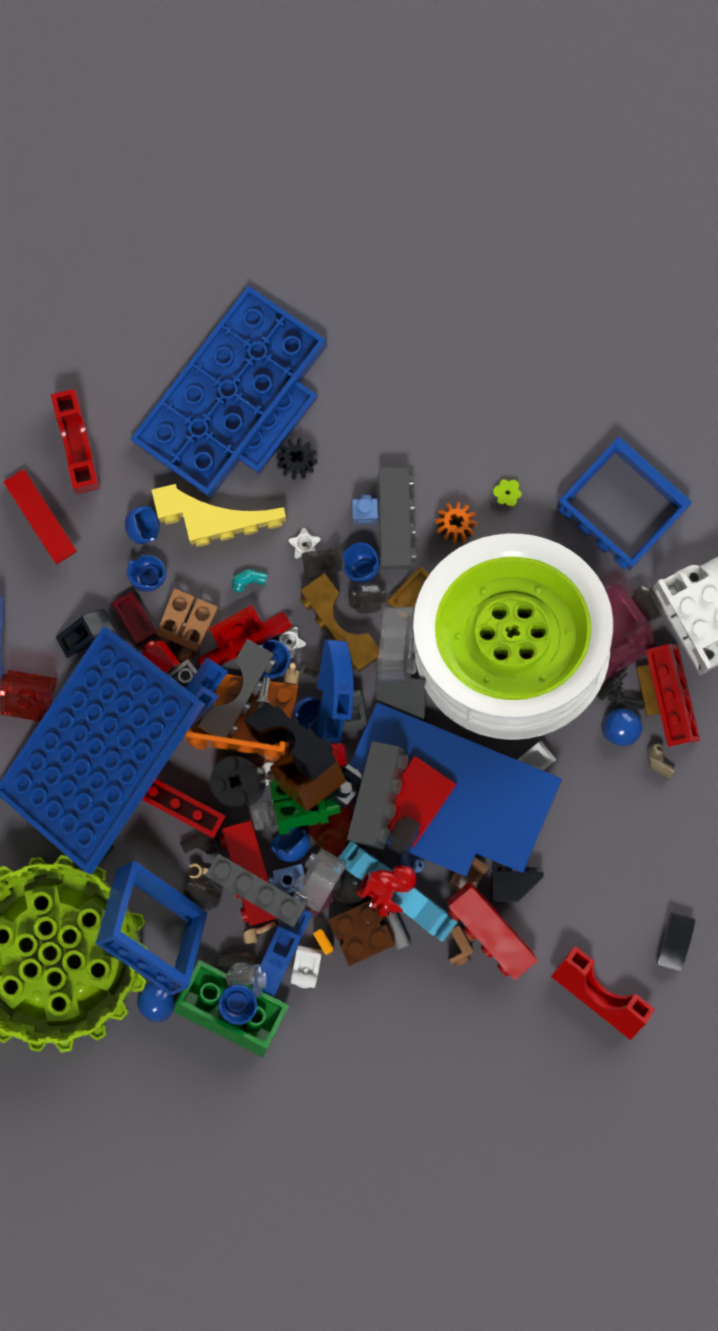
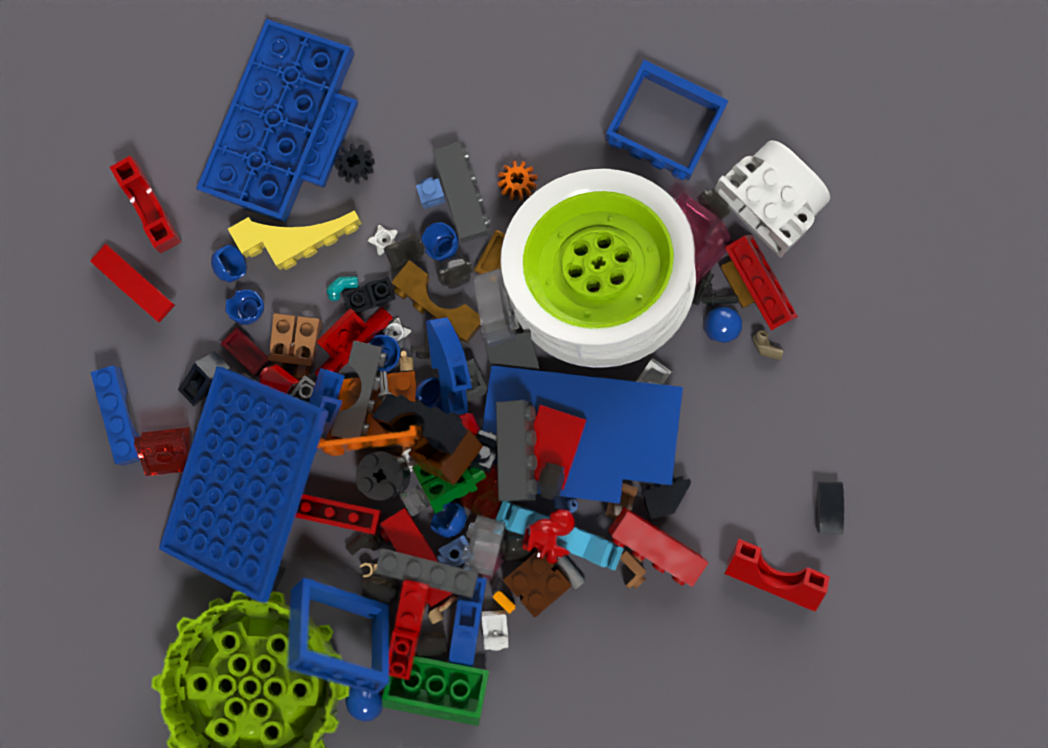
camera: 10 degrees left, 0 degrees up
(221, 940) = (407, 628): none -> red slope
(237, 1004) = (440, 685): blue hair -> none
(247, 974) = (442, 653): clear bracket -> none
(274, 597) = (369, 296): none -> black slope
(512, 487) = (553, 135): lime plant -> none

